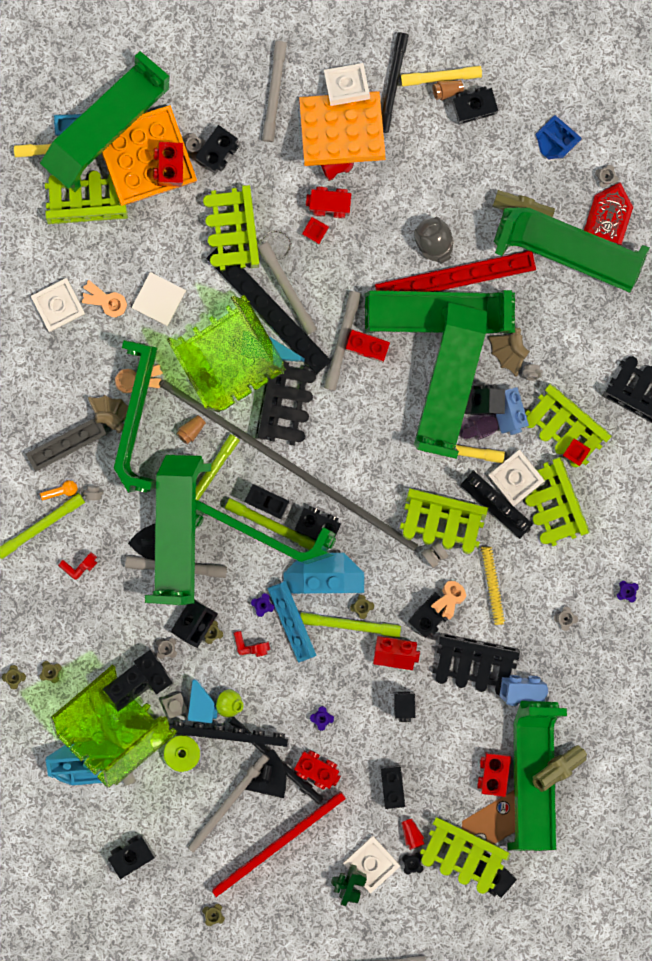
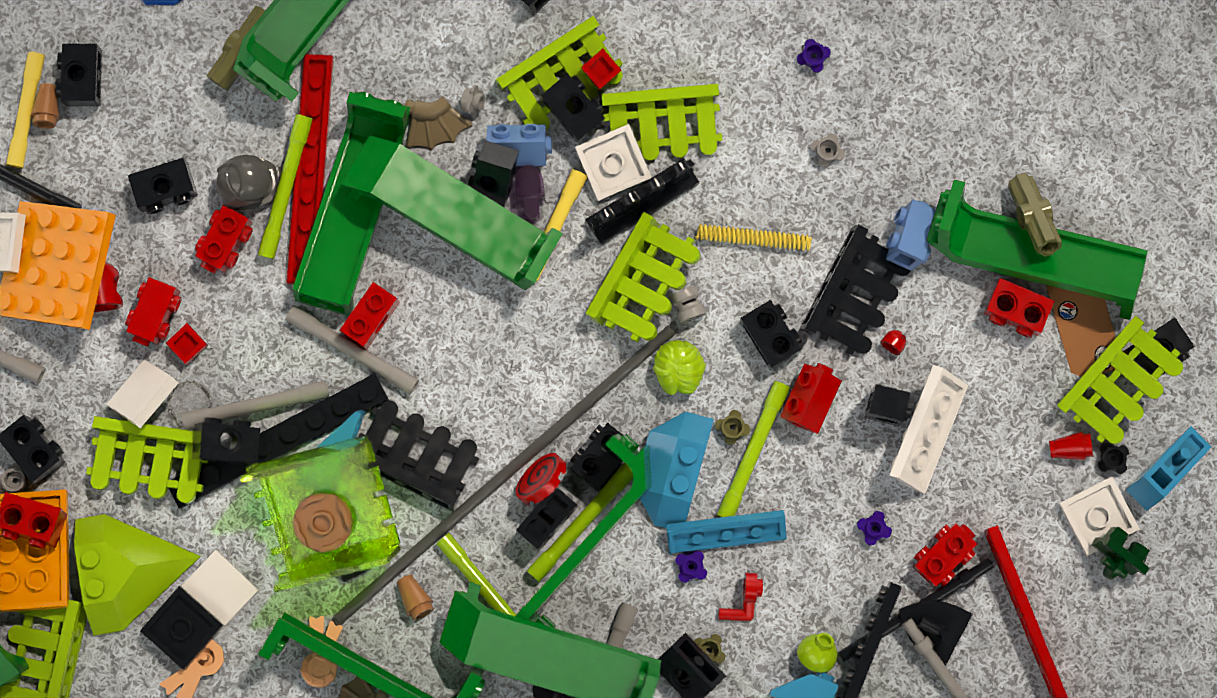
camera: 70 degrees left, 5 degrees down
(128, 284) = (182, 628): none -> black tile
(155, 233) = (123, 570): none -> lime wedge
(222, 356) = (323, 522): none -> medium nougat tile
(256, 265) = (208, 444): none -> black brick
(273, 212) = (142, 393): none -> white tile
(291, 490) = (540, 479): none -> red tile
(391, 234) = (223, 239): none -> red brick
(391, 560) = (679, 367): none -> lime hair
(392, 786) = (998, 455): black brick -> none
(396, 736) = (928, 429): none -> white plate
(414, 171) = (145, 185): none -> black brick
(415, 902) = (1168, 469): none -> dark azure slope
(441, 264) = (272, 233): none -> lime piece
(449, 698) = (894, 342): none -> red hinge
(454, 594) = (752, 294): light nougat piece -> none
(537, 449) = (575, 124): none -> black brick

